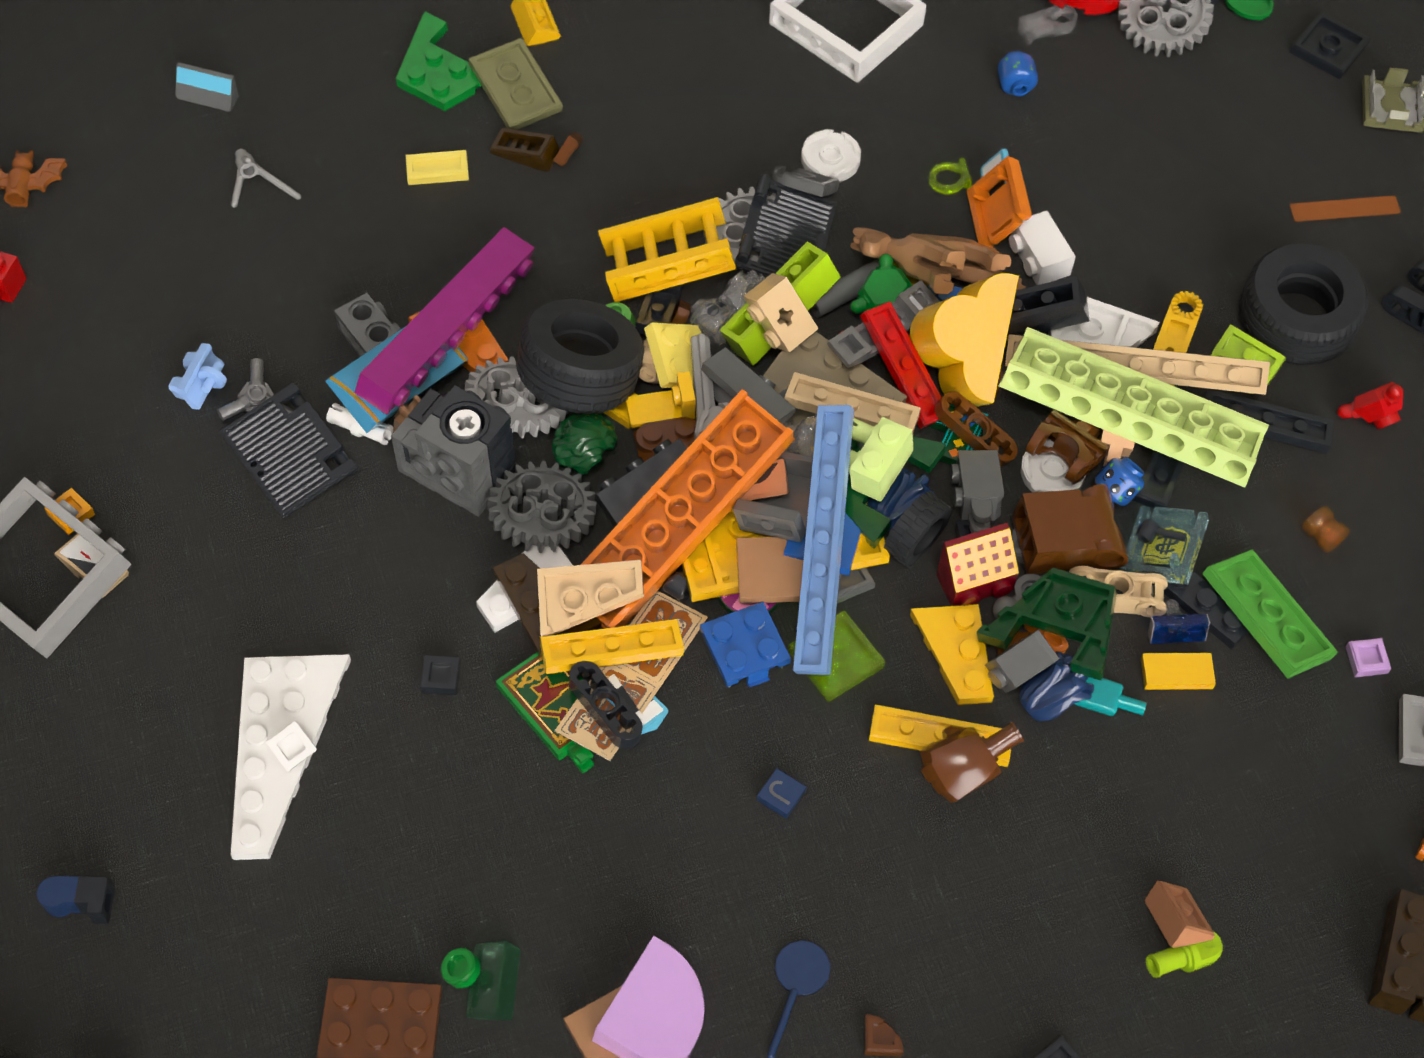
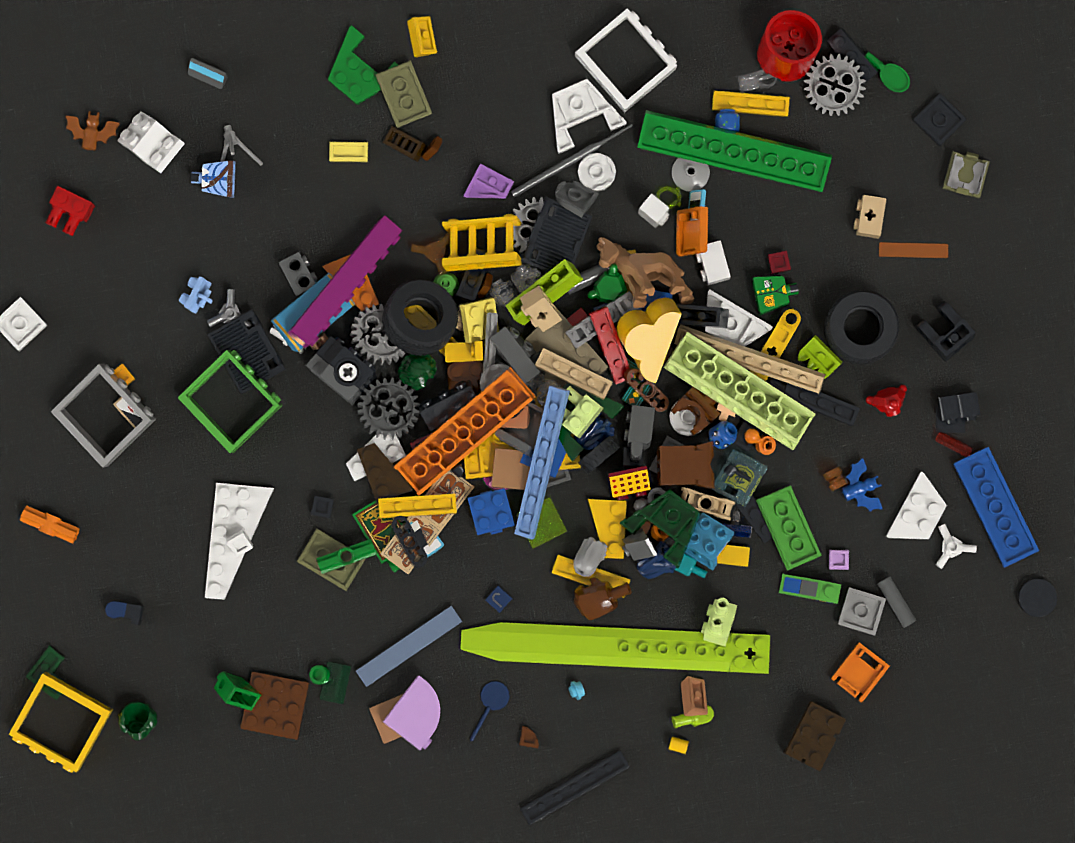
camera: 10 degrees right, 25 degrees up
(114, 172) = (150, 141): none -> white bracket
(225, 482) = (208, 422): none -> bright green window
(226, 214) = (216, 178): none -> torso
(289, 1007) = (230, 685): none -> green torso
(465, 763) = (321, 545): none -> olive tile
(472, 754) = (334, 561): none -> green piece
(585, 591) = (405, 476): tan wing -> none
(590, 278) = (434, 251): none -> clear orange piece
(624, 897) = (408, 646): none -> sand blue tile
(665, 184) = (488, 184): none -> medium lavender wing
(781, 147) = (564, 164): none -> dark grey piece
(788, 73) = (577, 105): none -> white wing
(933, 183) = (654, 211): none -> white brick
(935, 692) = (589, 557): none -> light grey piece
(956, 933) = (576, 690): none -> medium azure plate
(974, 142) = (686, 181): none -> light grey dish
(1016, 851) = (616, 647): none -> lime wedge
(1039, 101) = (734, 151): none -> green plate
(1050, 51) = (751, 103): none -> yellow tile
(1139, 647) = (708, 541): none -> dark azure bracket
(1144, 239) = (779, 262): none -> dark red plate
(1144, 278) = (772, 293): none -> green torso
(1170, 1011) = (678, 745): none -> yellow hinge
(1191, 491) = (752, 436): none -> orange plate
(1193, 772) = (720, 621): none -> yellowish green brick
(1267, 165) = (876, 207): none -> tan brick
(1339, 706) = (810, 588): none -> slope
(1369, 541) = (858, 488): none -> blue animal

